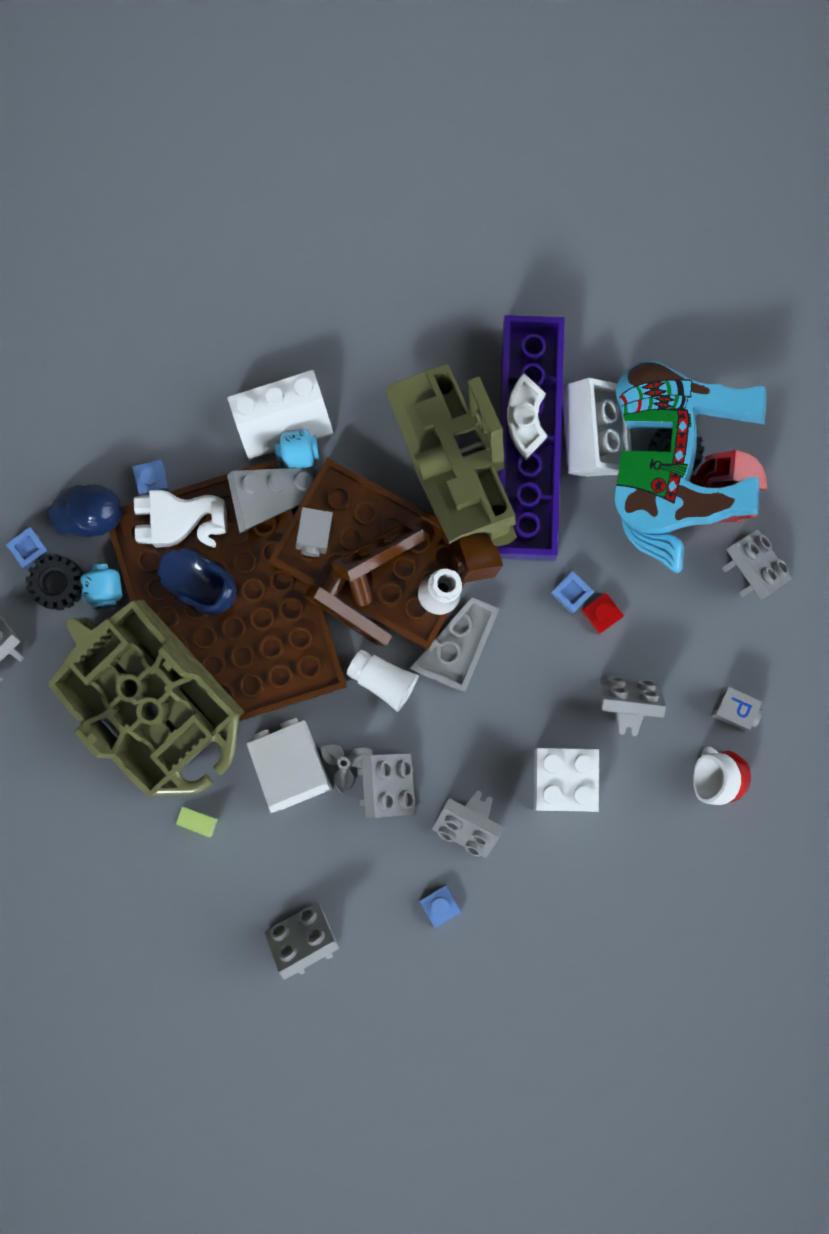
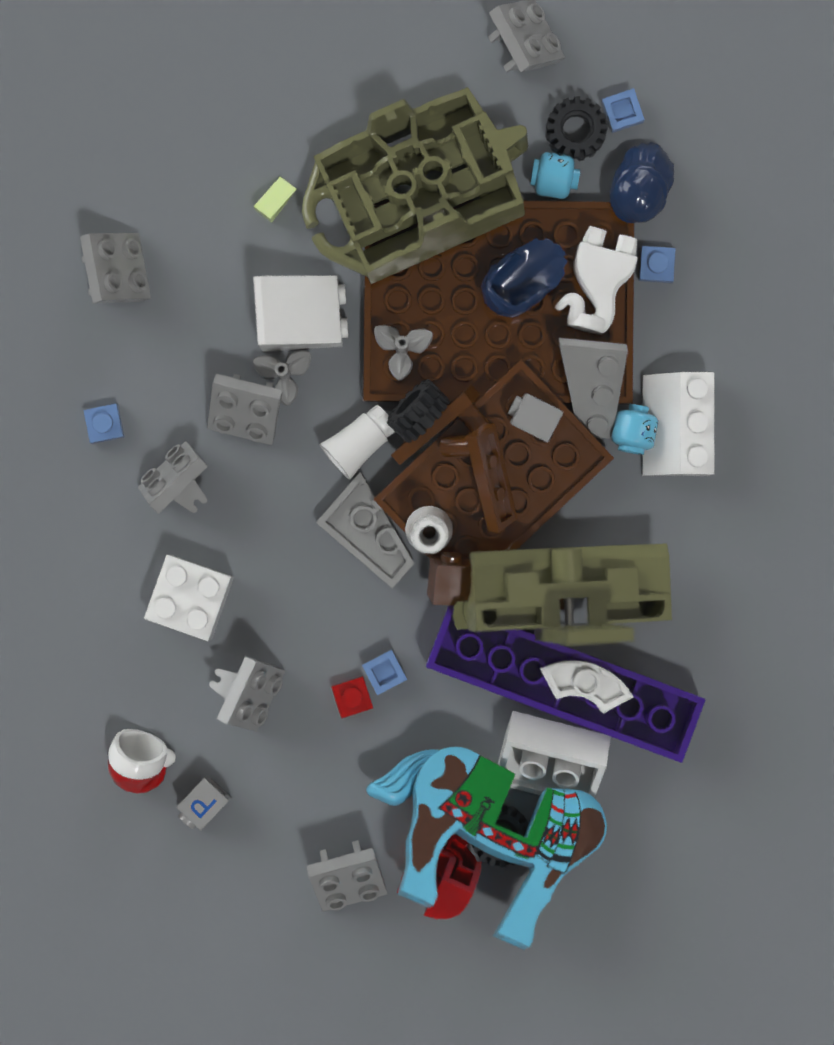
camera: 105 degrees right, 5 degrees up
(282, 657) = (390, 339): none -> light grey plant
(341, 633) = (418, 411): none -> black tyre

